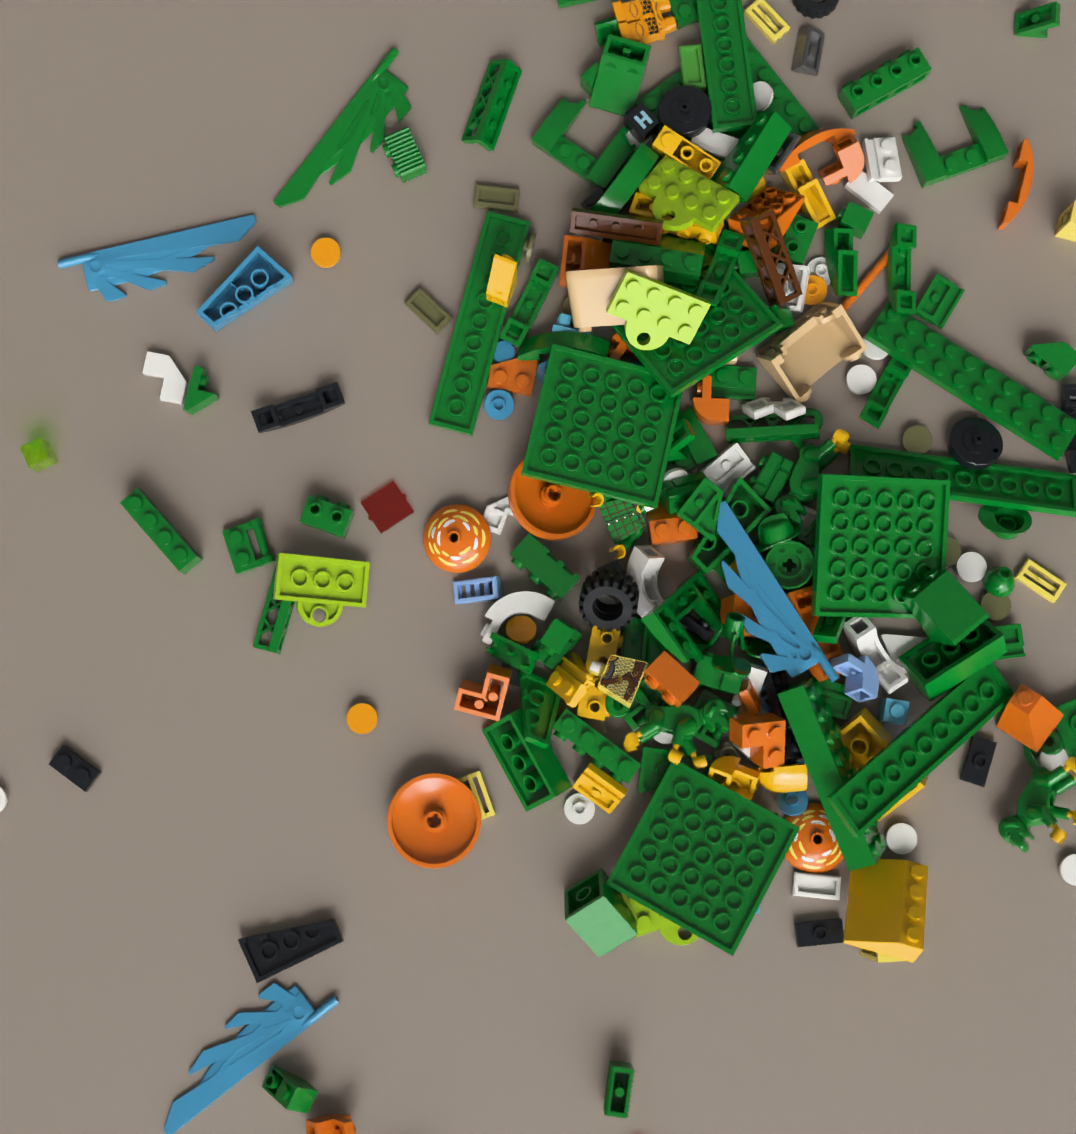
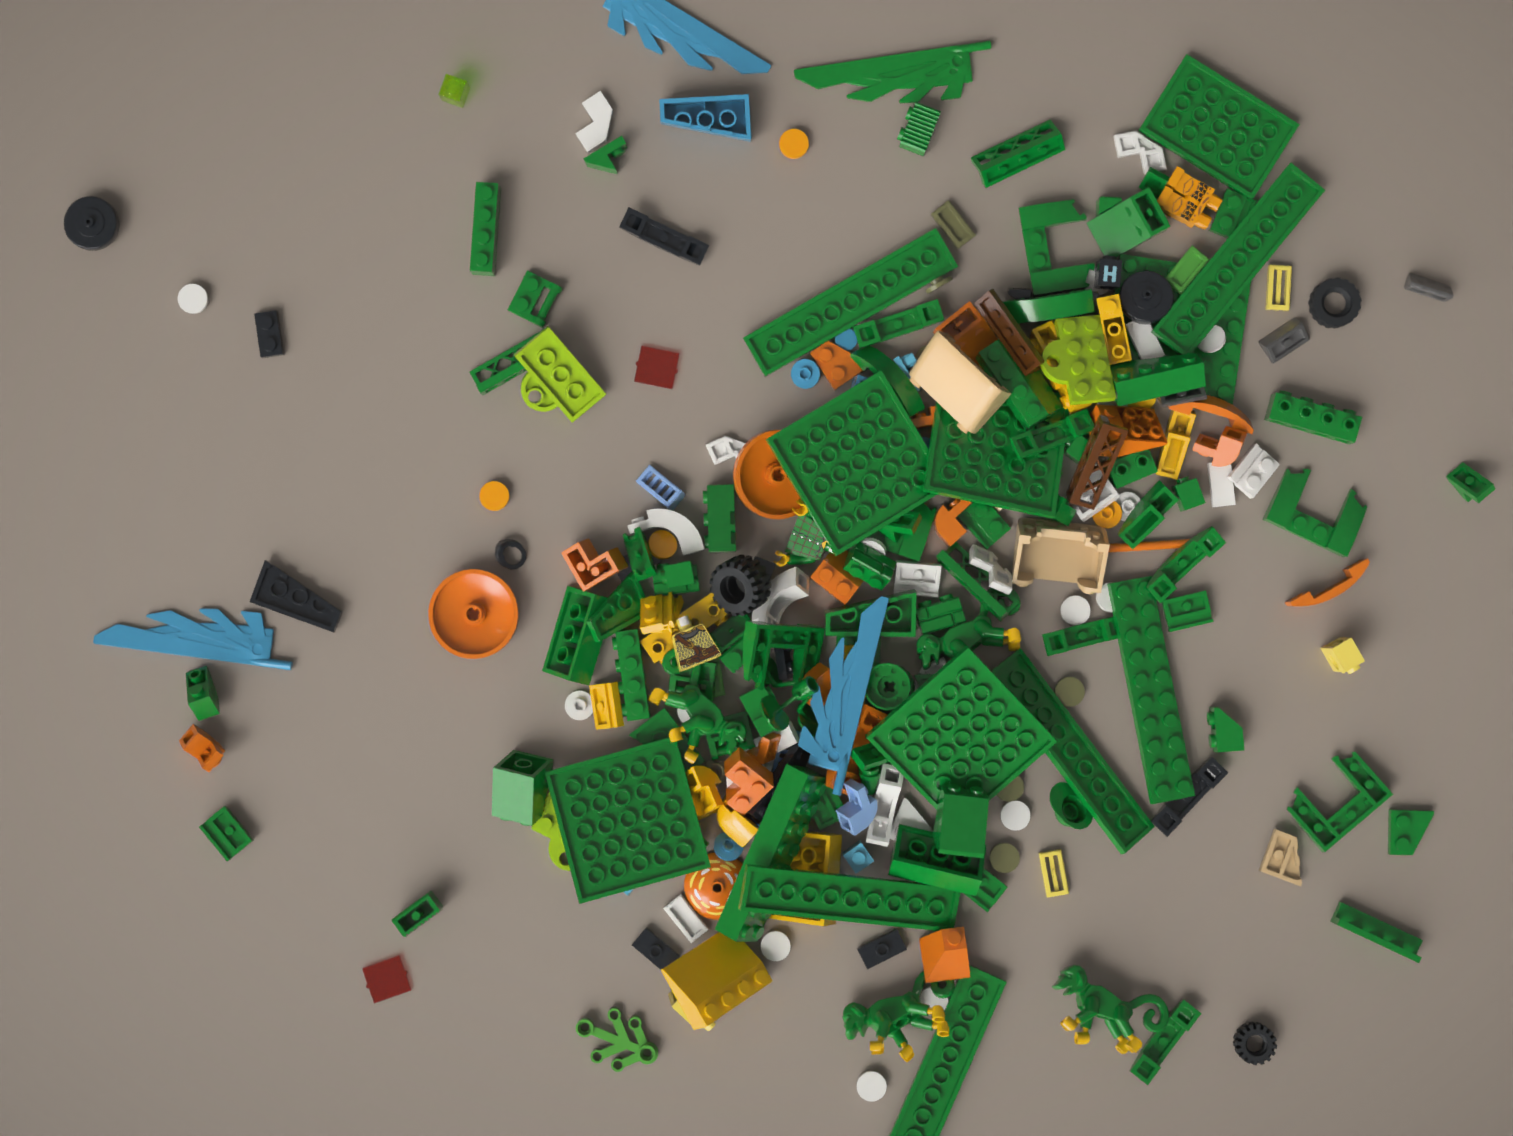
camera: 45 degrees right, 5 degrees up
(327, 516) = (608, 332): green brick -> none
(405, 753) = (501, 545): none -> black piece
(428, 311) = (823, 257): olive tile -> none
(470, 778) = (534, 613): light yellow tile -> none
(472, 541) = (695, 445): orange dish -> none
(502, 280) = (891, 290): yellow slope -> none
(566, 19) = (1135, 143): none -> white tile
(655, 310) = (971, 420): plate -> none
(670, 679) = (724, 681): orange brick -> none
(702, 508) = (866, 588): green wing -> none
(775, 530) = (902, 654): green piece -> none
(844, 644) = (870, 778): none -> green cone
(863, 1028) = (620, 1041): none -> bright green plant
(974, 443) = (1106, 734): black wheel -> none
(999, 581) = (1023, 844): green brick -> none

